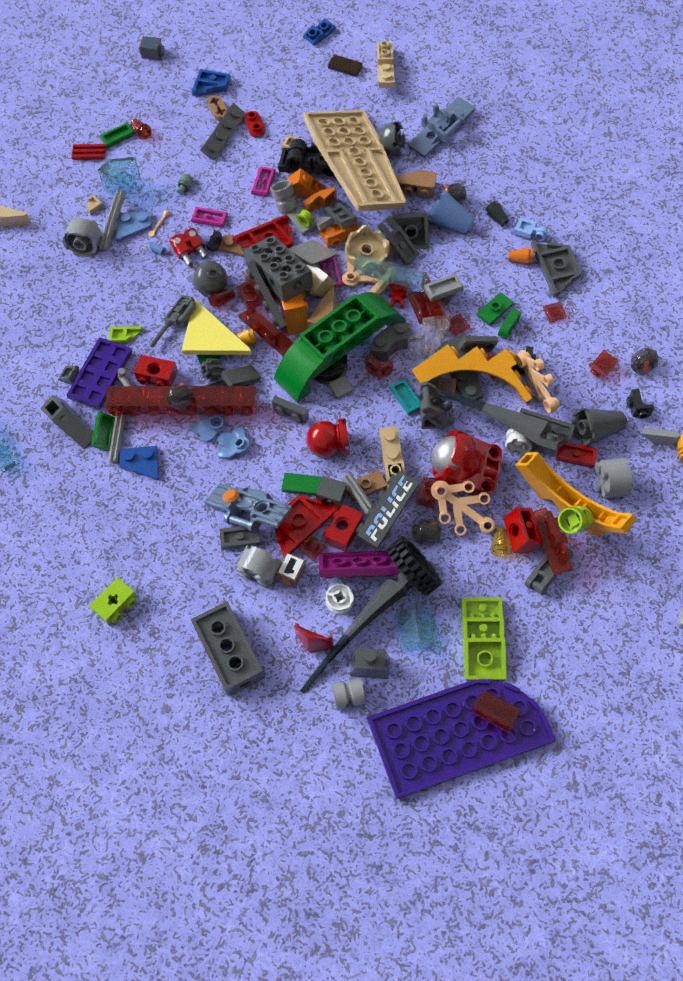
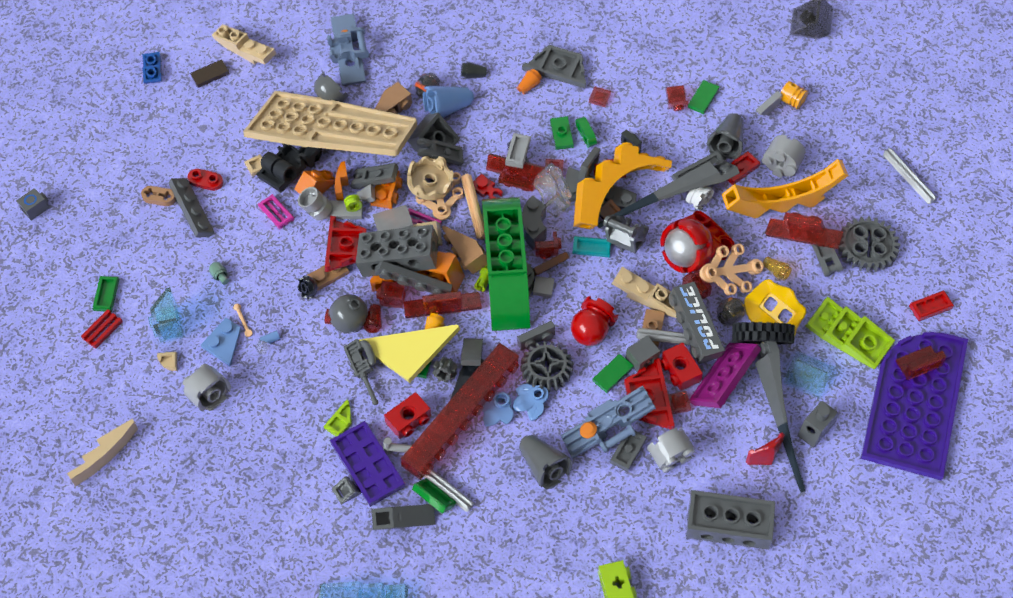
camera: 55 degrees left, 5 degrees down
(111, 220) = (203, 350): light grey axle -> none
(141, 129) = (120, 269): clear red cone -> none
(141, 461) = (488, 483): blue wing -> none
(179, 396) = (465, 404): clear smoke head -> none
(182, 484) = (545, 461): none -> dark grey cone
(186, 244) = (290, 310): red piece -> none
(209, 219) = (277, 282): dark pink tile -> none
(210, 82) = (122, 183): blue wing -> none
(269, 425) = (532, 369): none -> dark grey gear
(291, 570) = (692, 427): brick -> none
(345, 604) = (746, 417): white wheel -> none
(348, 693) = (832, 455): light grey wheel -> none
(362, 377) = (550, 263): none -> reddish brown tile
(390, 273) = (472, 176): clear light blue slope -> none
(446, 565) = (785, 297): none -> yellow piece
(522, 530) = (791, 242): red brick -> none
(527, 227) = (506, 61): light blue plate -> none
(536, 379) = (660, 145): light nougat plant -> none
(567, 689) = (931, 305): none -> red plate
(575, 519) = (807, 201): lime wheel -> none
(598, 614) = (886, 244): none -> dark grey gear
(624, 384) = (703, 97): none -> green tile
(637, 408) = (731, 102): pearl dark grey bracket -> none
(644, 360) = (695, 70): clear smoke head -> none

